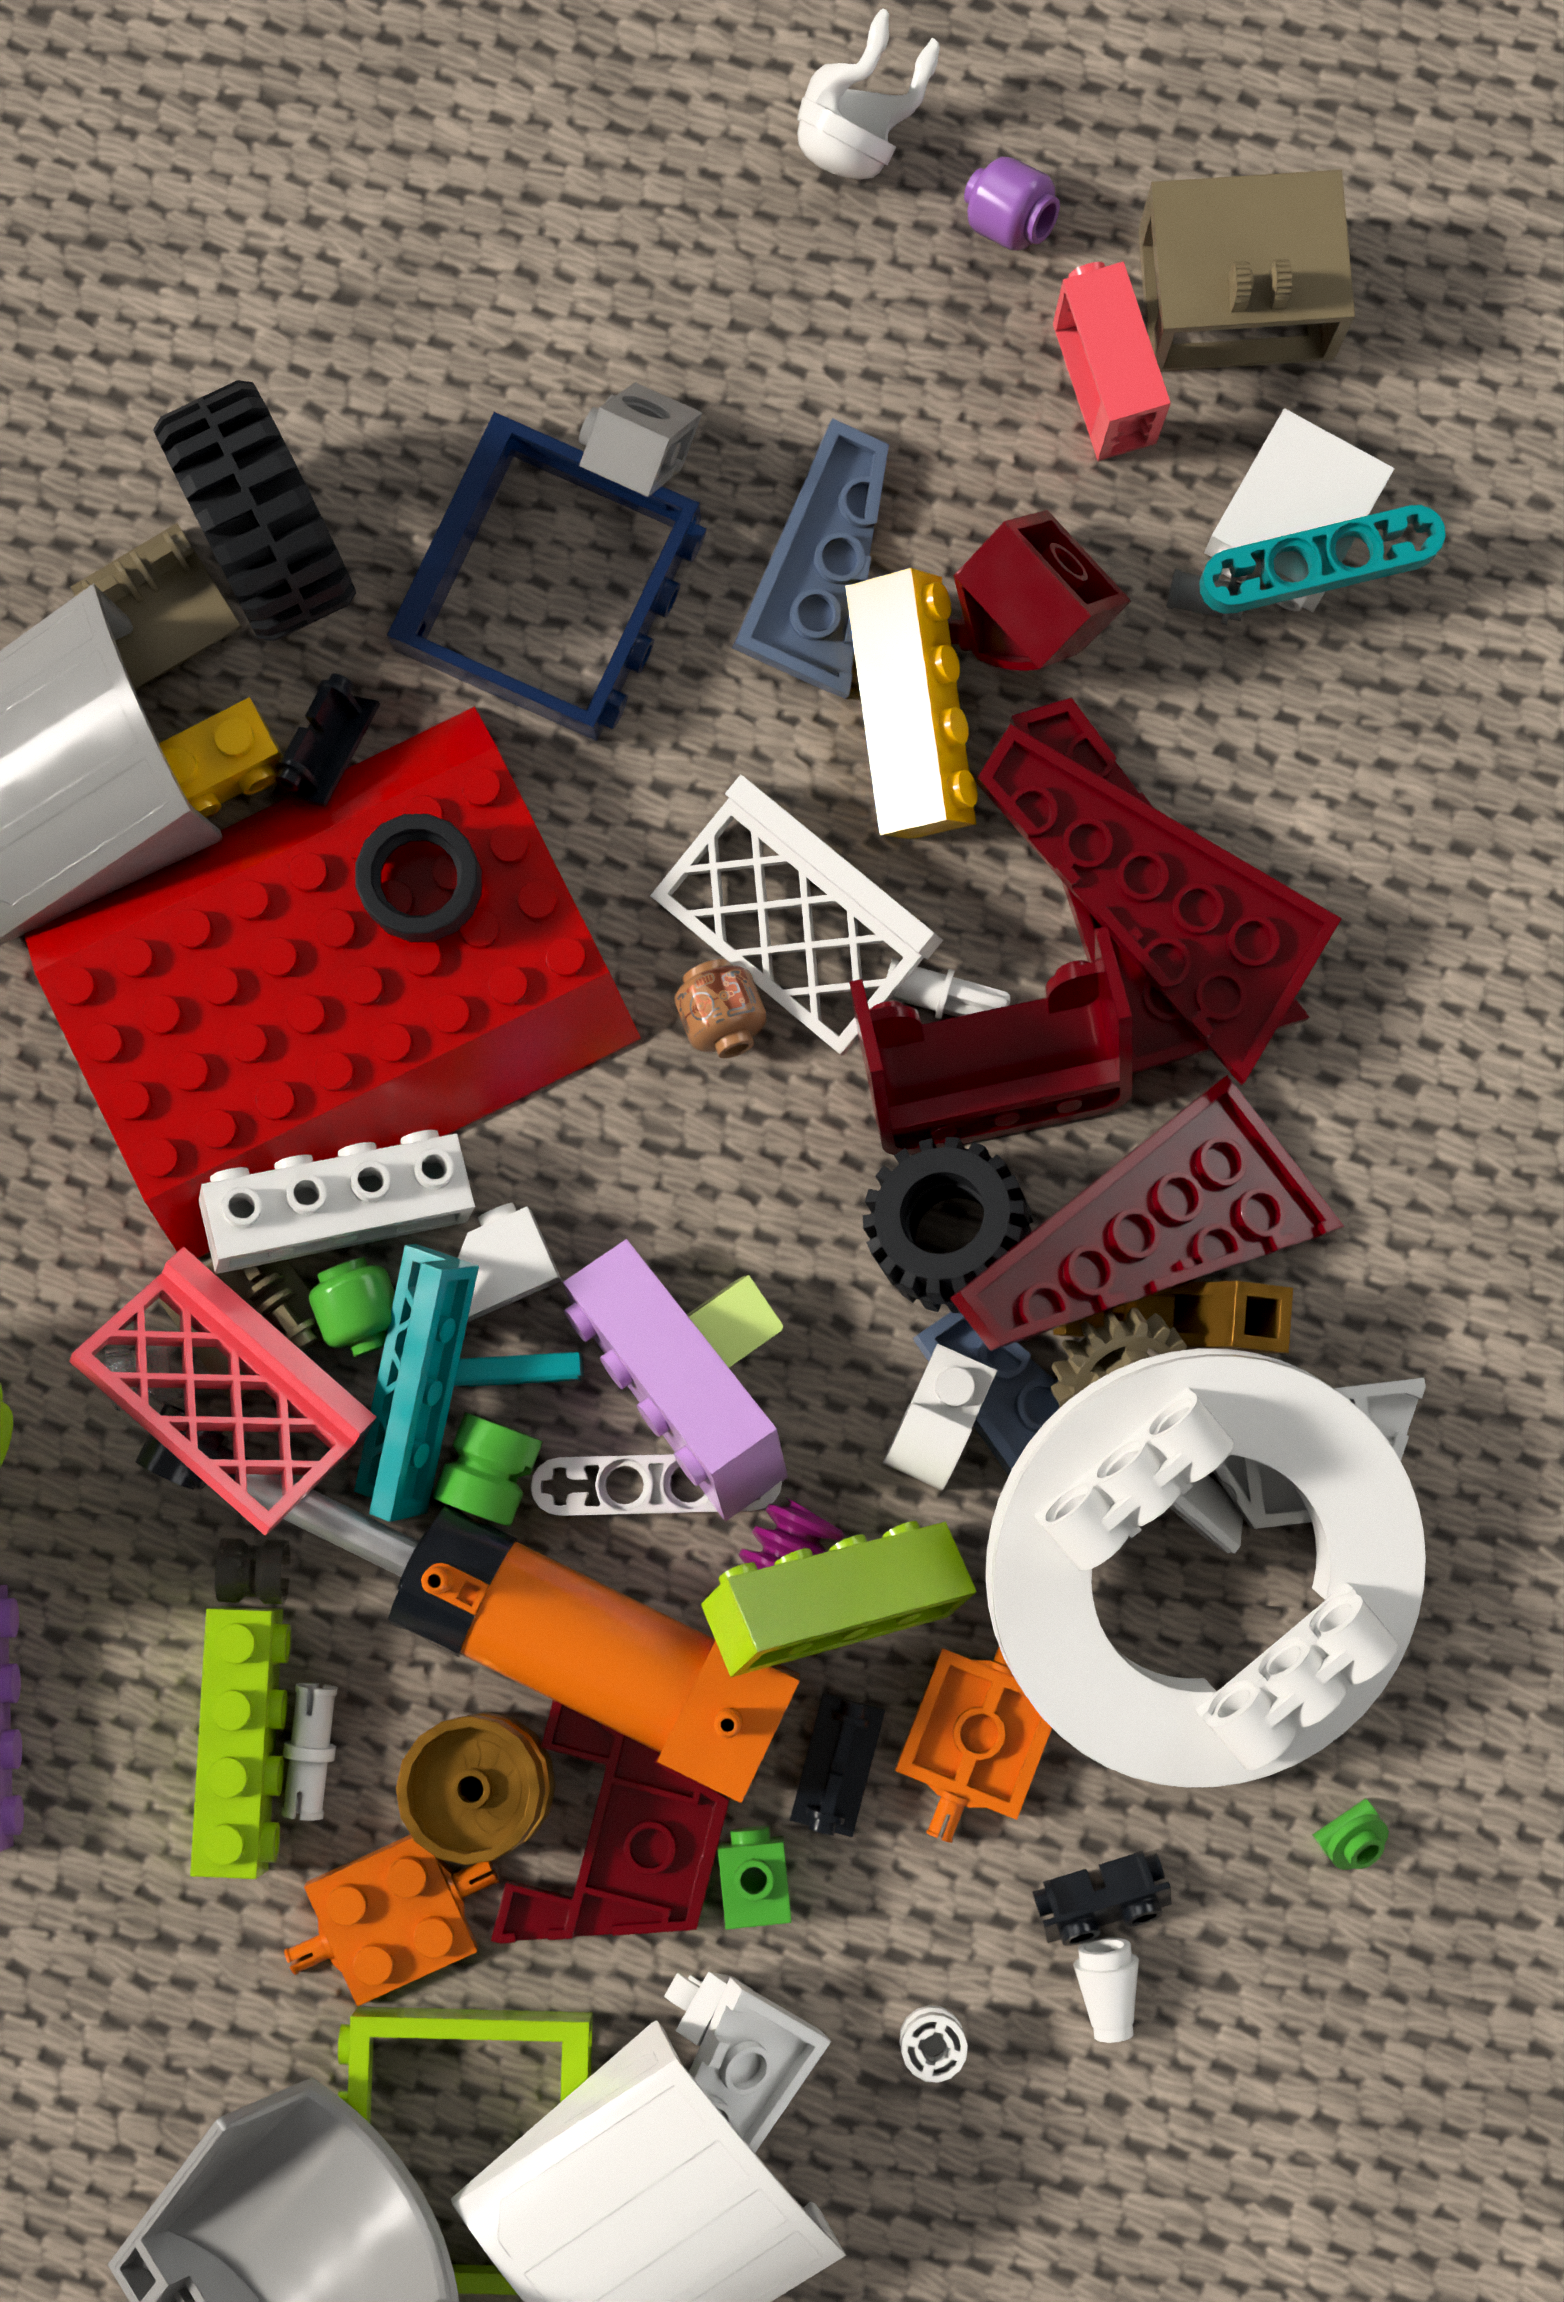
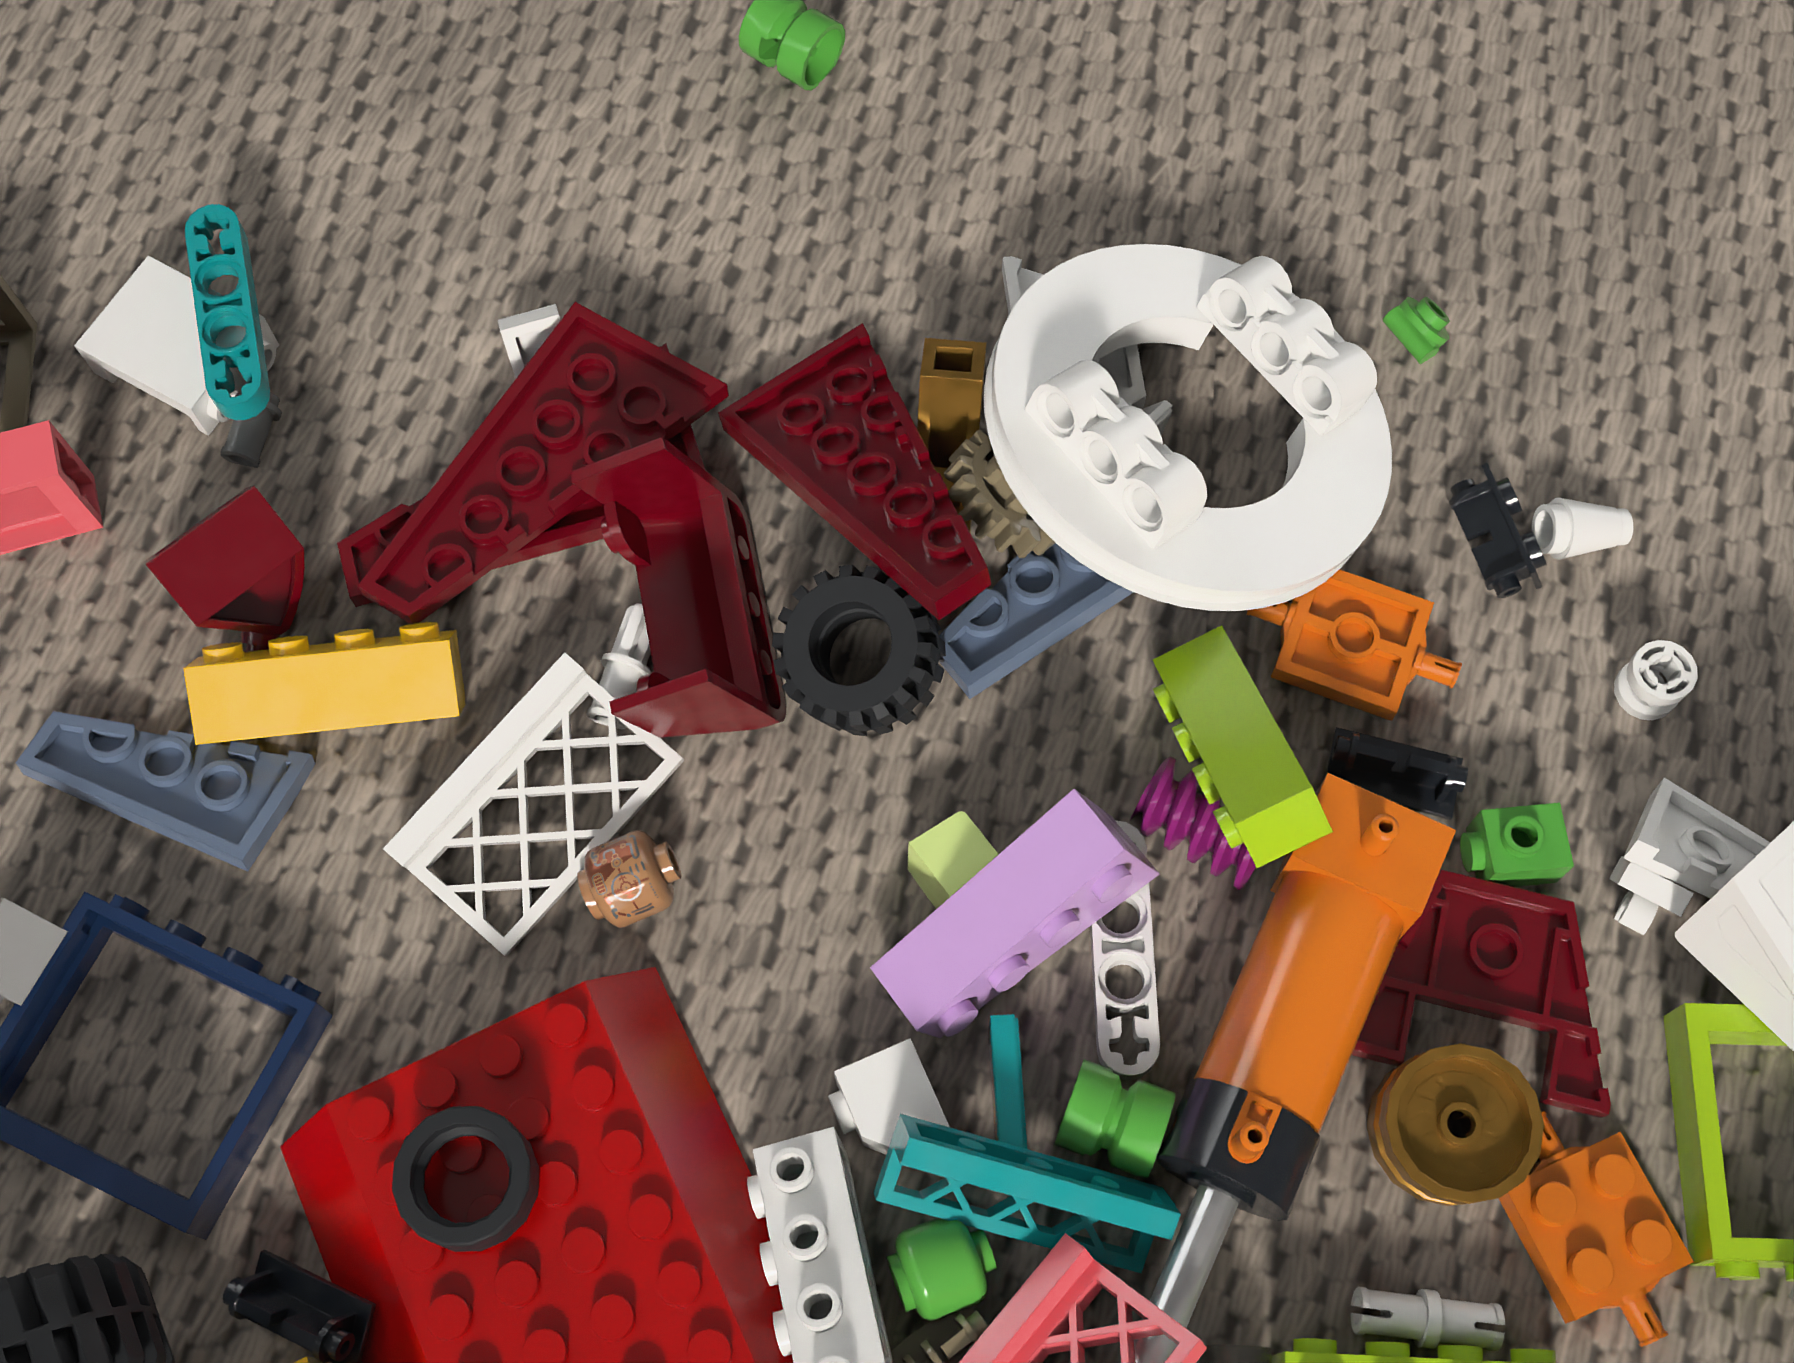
camera: 90 degrees left, 15 degrees down
(940, 1417) = (1063, 664): white brick -> none
(1313, 873) = (526, 333): none -> white tile

